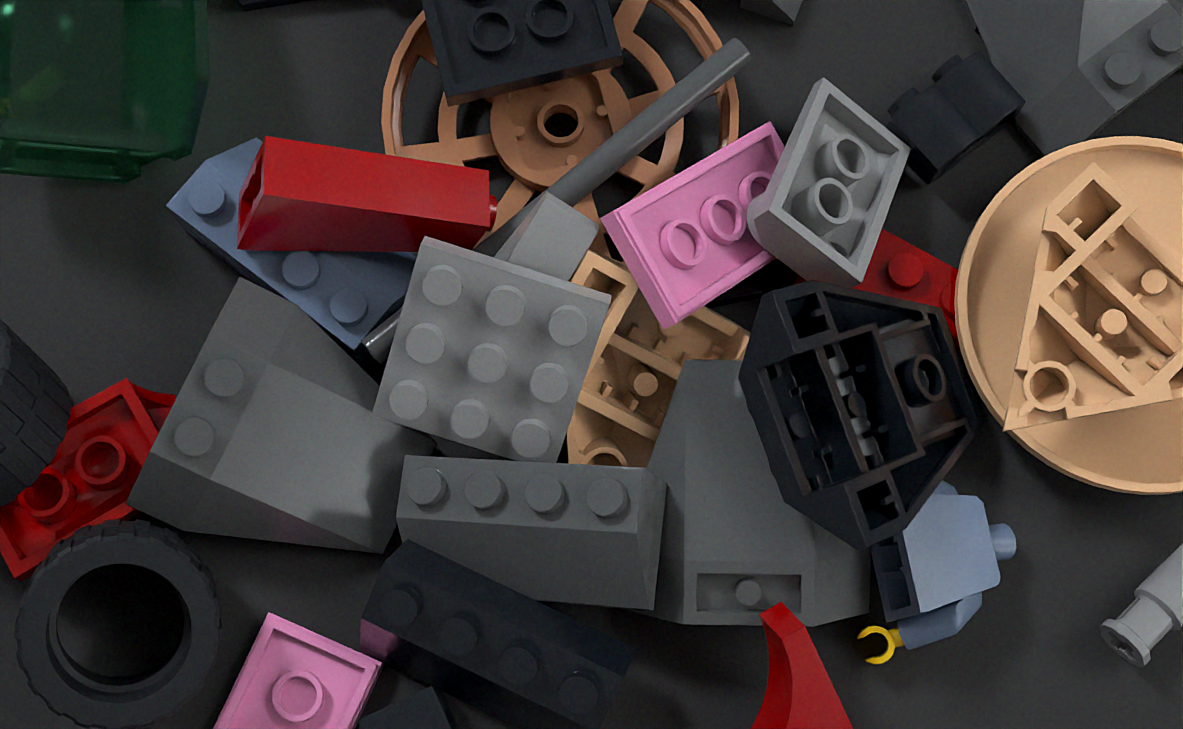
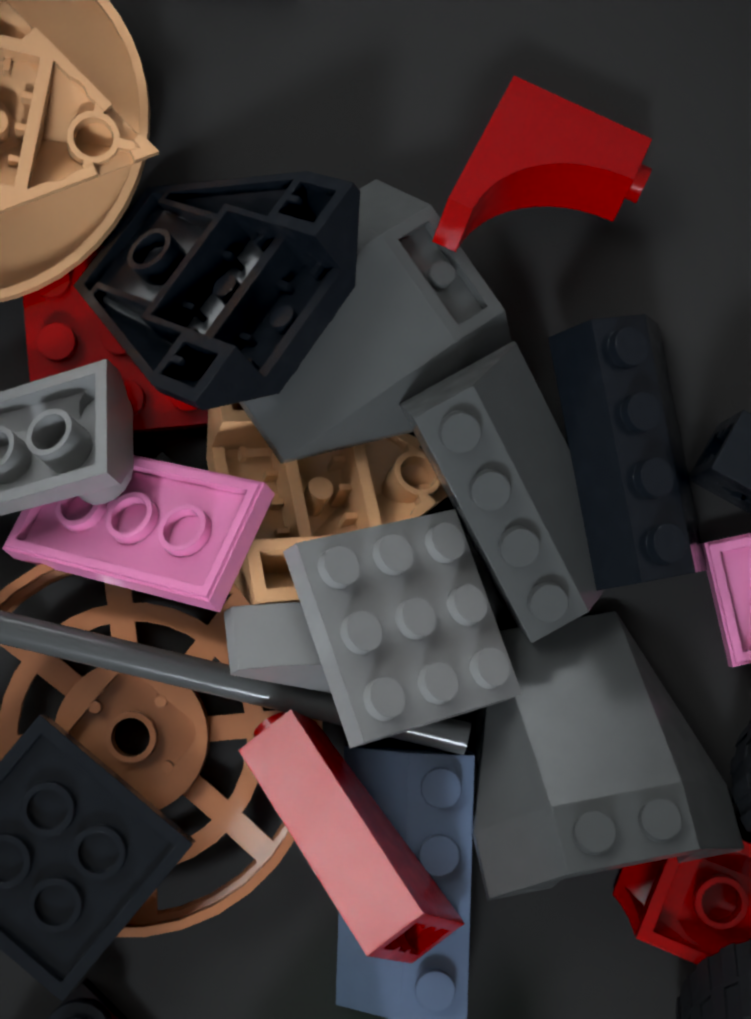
camera: 125 degrees left, 10 degrees up
(937, 569) = (308, 132): sand blue torso -> none

